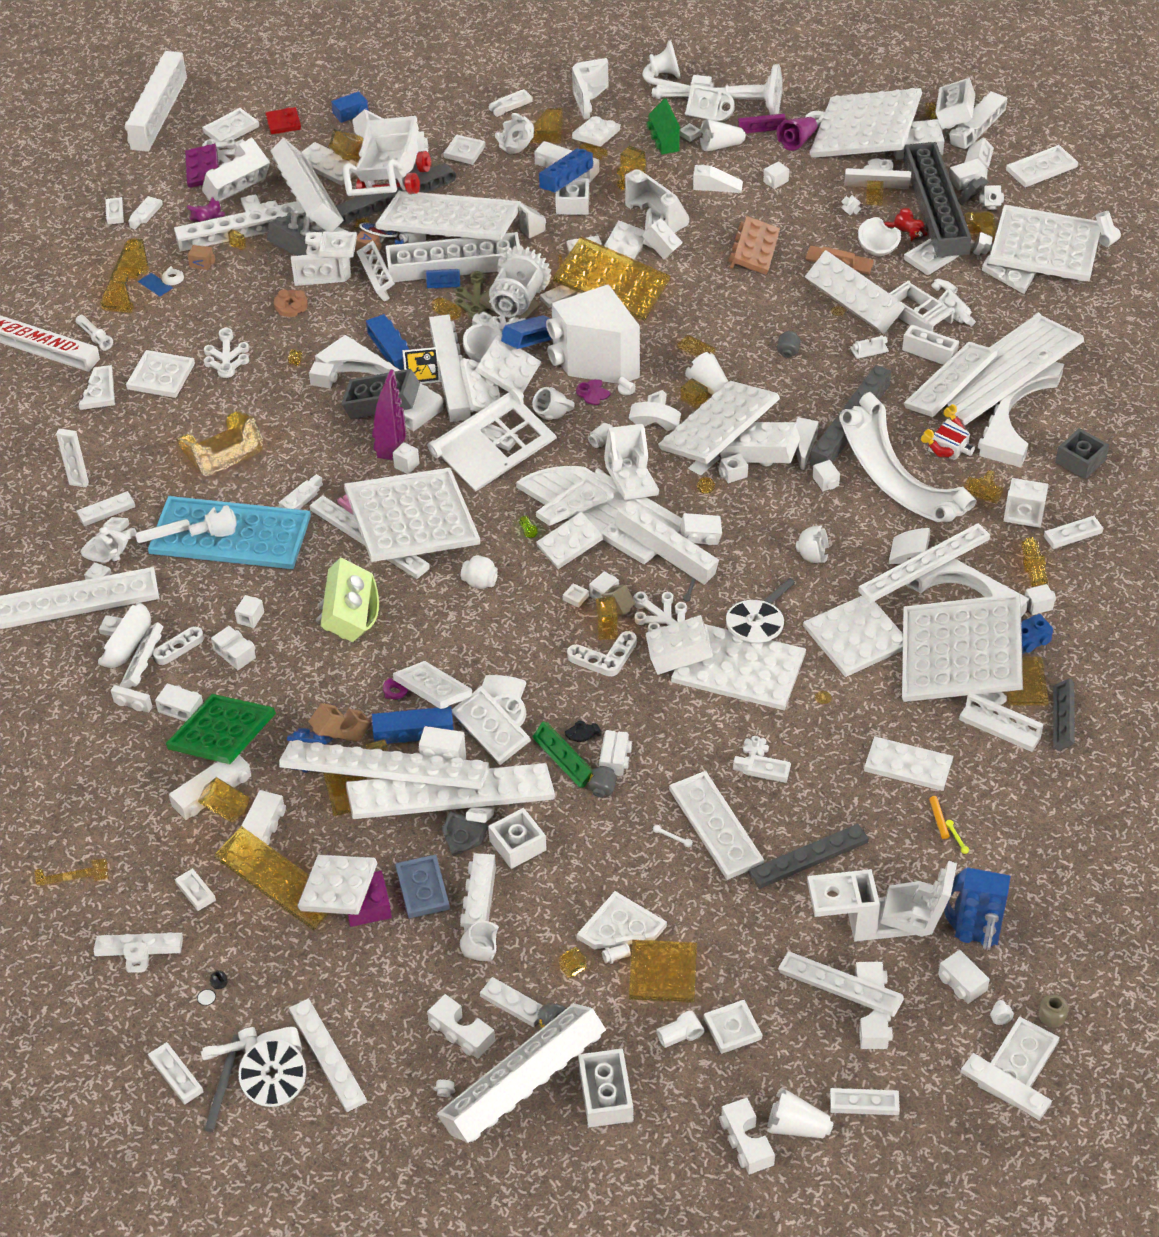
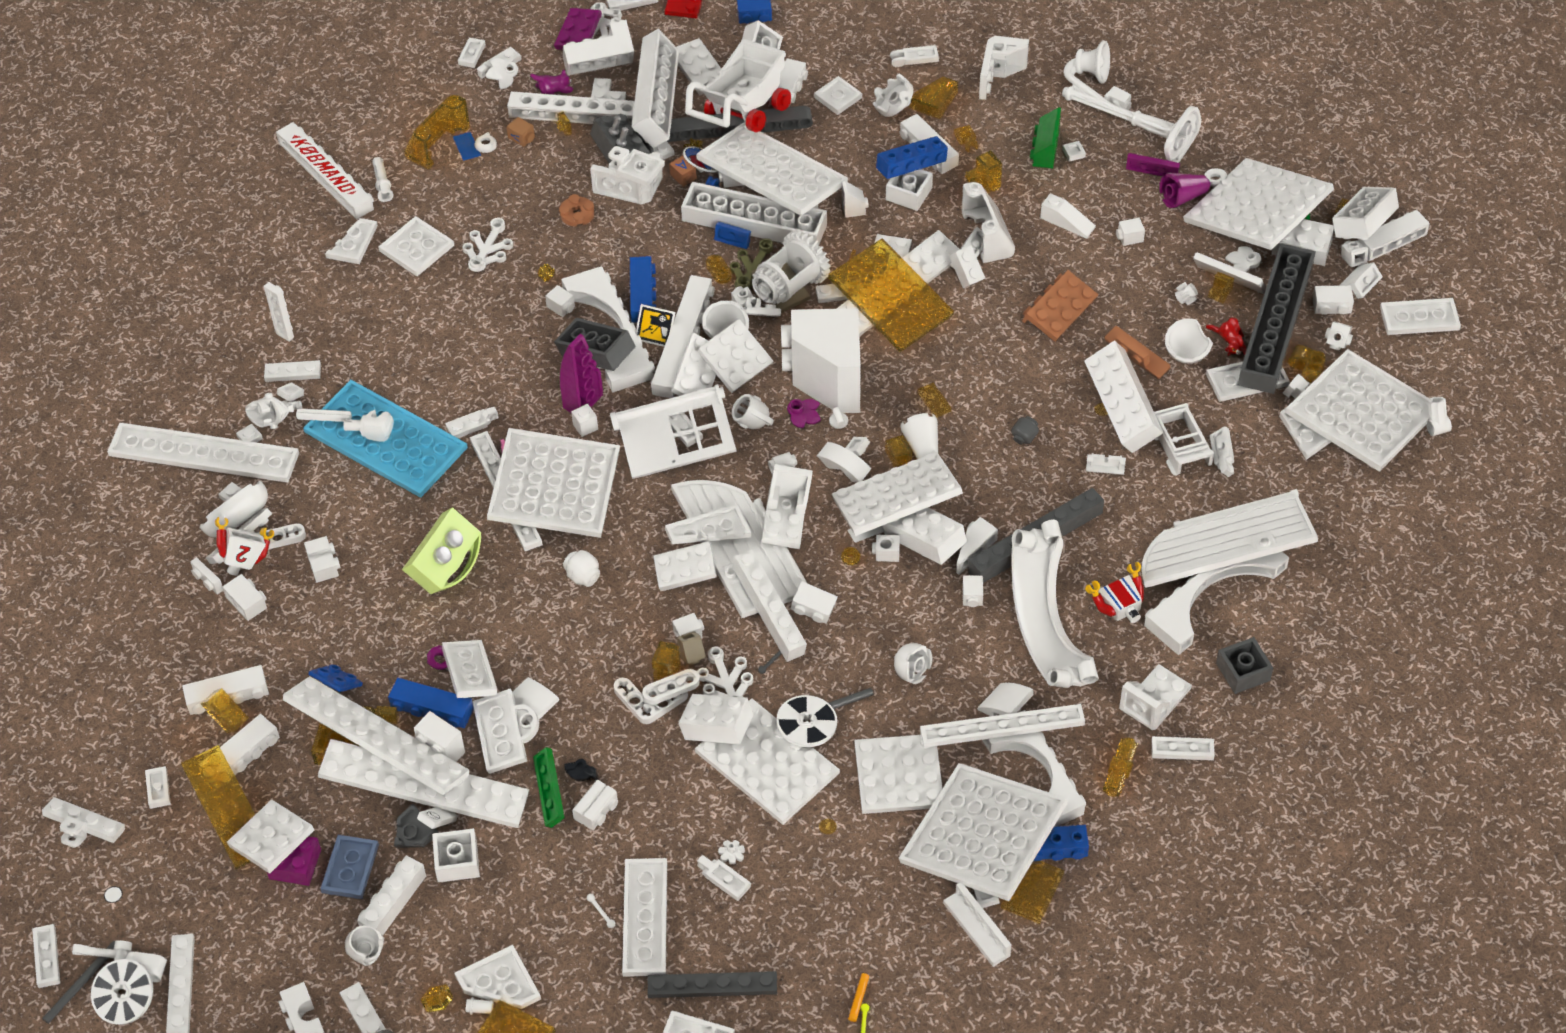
camera: 25 degrees right, 5 degrees up
(98, 870) = (88, 734): clear yellow hinge -> none
(151, 217) = (500, 72): none -> white plate
(153, 661) = (241, 548): none -> white torso
(215, 983) = (135, 881): black hinge -> none
(220, 728) = (262, 638): green plate -> none
(225, 448) = (427, 347): clear yellow windscreen -> none
(249, 611) = (356, 527): white brick -> none
(330, 722) = (349, 672): medium nougat arch -> none
(346, 145) = (718, 52): clear yellow brick -> none
(371, 269) = (671, 204): white fence -> none
(526, 332) = (763, 326): blue brick -> none
(529, 529) = (656, 540): clear neon green pin -> none
(575, 595) = (657, 626): white plate -> none
(596, 131) = (979, 118): white plate -> none
(602, 781) = (567, 829): dark grey head -> none
(621, 635) = (677, 681): none -> white plate
(708, 102) = (1109, 125): white plate -> none
(720, 135) = (1101, 166): white cone -> none
(908, 763) = (864, 929): white plate -> none
(929, 344) = (1165, 485): white brick -> none
(938, 283) = (1229, 419): white arm -> none
(950, 379) = (1162, 530): white plate -> none
(975, 187) = (1324, 319): dark grey plate -> none
(984, 487) = (1124, 663): clear yellow hinge -> none
(1040, 599) = (1100, 808): white brick -> none
(1063, 715) = (1045, 941): dark grey plate -> none

